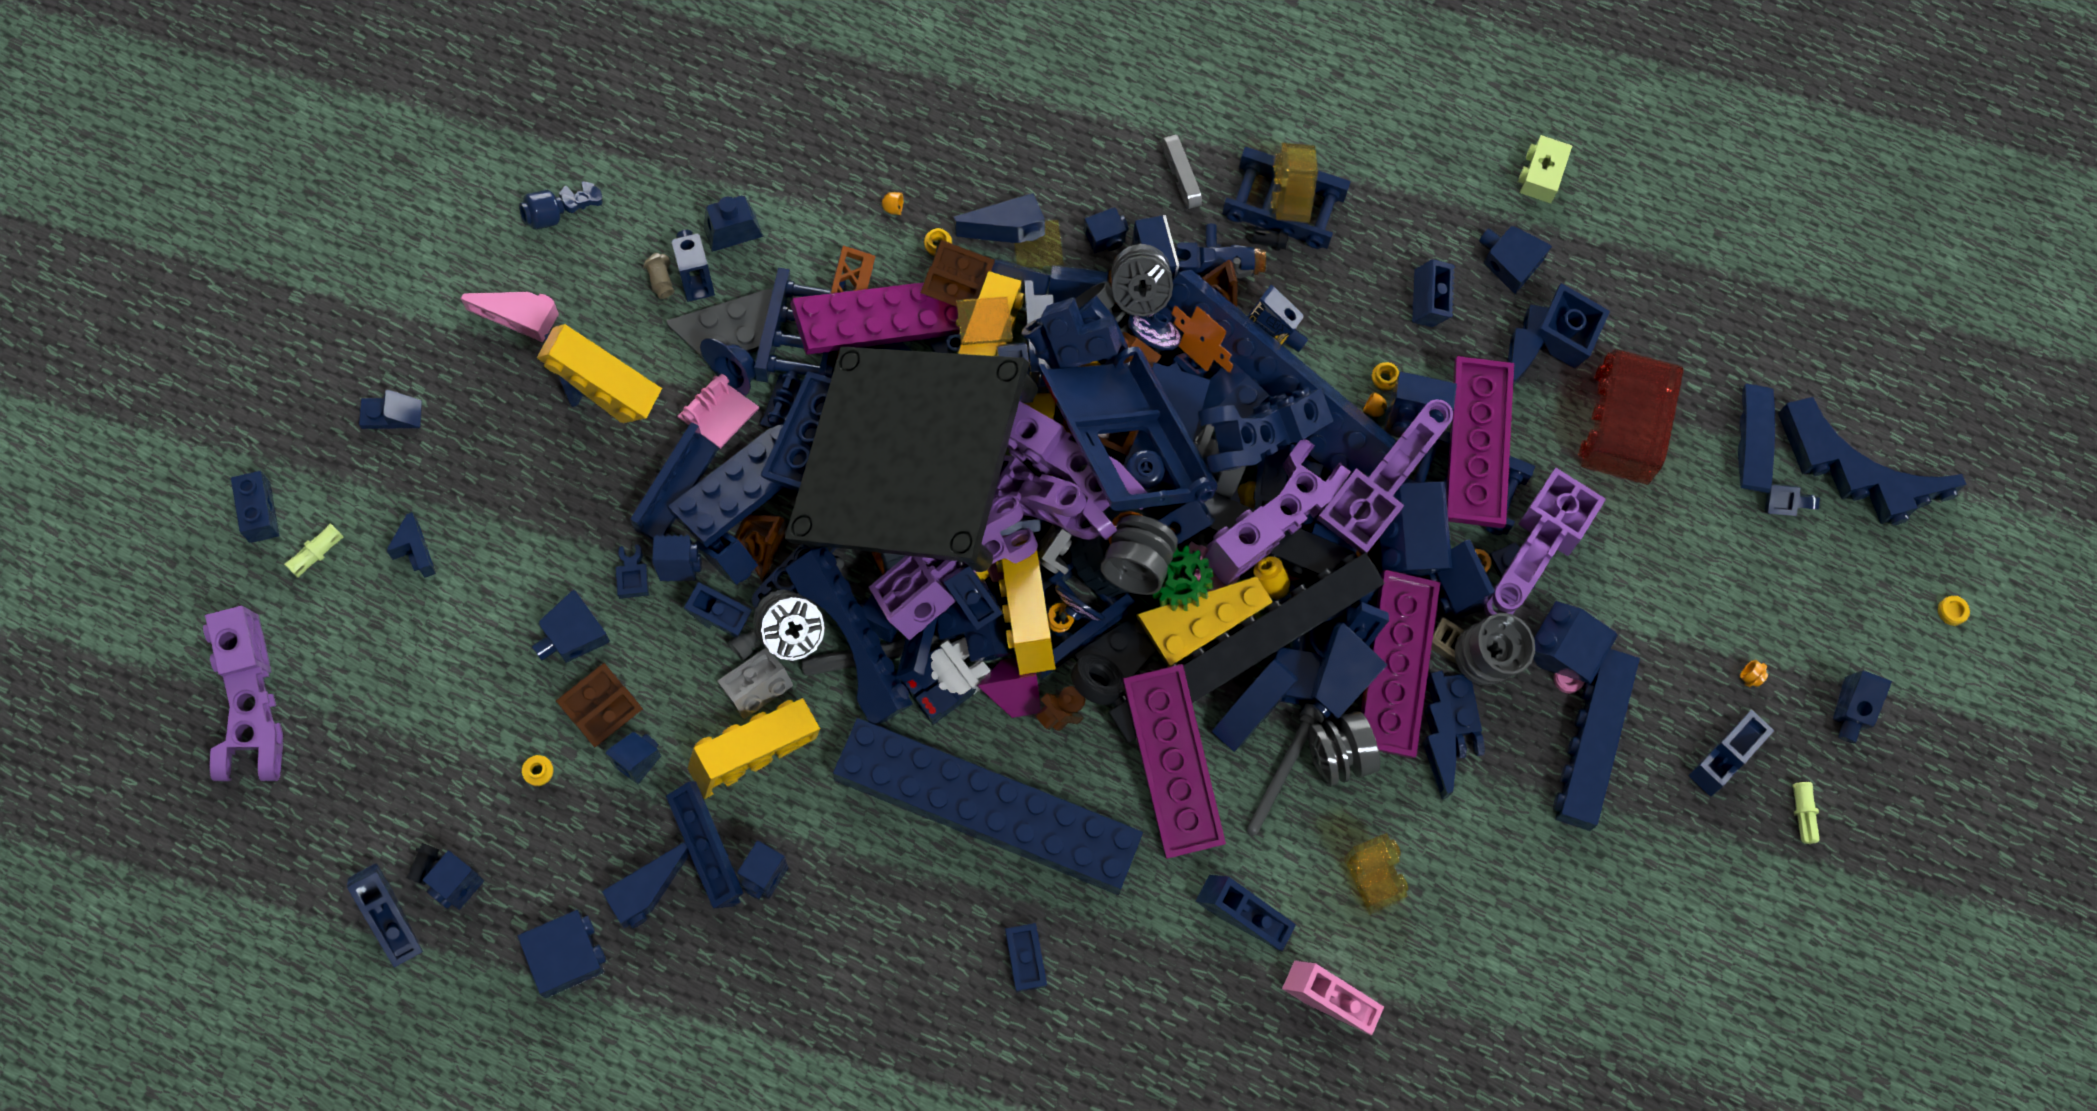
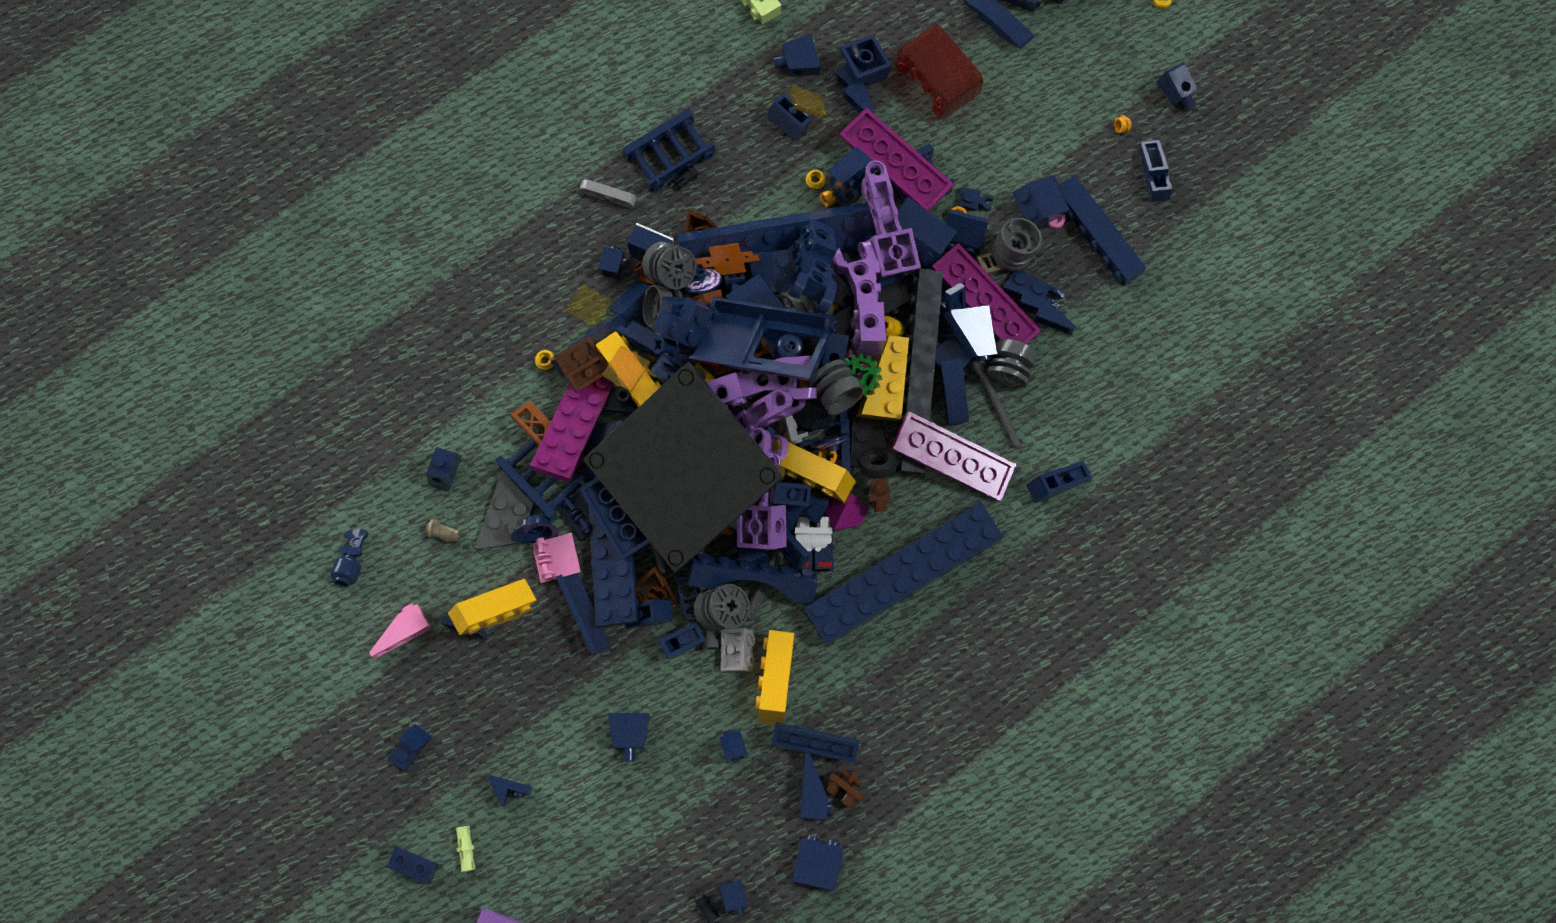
camera: 50 degrees left, 5 degrees up
(539, 779) = (691, 807): yellow plate -> none
(599, 705) = (684, 746): reddish brown slope -> none
(632, 577) = (622, 676): dark blue plate -> none
(676, 558) = (633, 642): dark blue brick -> none
(678, 907) = (852, 794): none -> reddish brown hips
(691, 257) = (453, 507): dark blue torso -> none
(762, 871) = (853, 721): dark blue brick -> none
(891, 201) = (500, 367): light orange hinge -> none
(1004, 222) = (564, 312): dark blue slope -> none
(1025, 957) = (1000, 614): dark blue plate -> none
(1202, 260) = (676, 216): dark blue piece -> none
(1279, 318) = (741, 210): dark blue torso -> none
(1296, 180) = (669, 136): clear yellow brick -> none
(1332, 996) = (1135, 471): bright pink slope -> none
(1374, 873) = (1088, 399): clear yellow brick -> none
(1468, 299) = (807, 101): none -> clear yellow piece
(1555, 522) = (969, 156): medium lavender brick -> none
(1787, 500) = (1043, 30): dark blue plate -> none
(1806, 812) = (1212, 159): yellowish green axle -> none

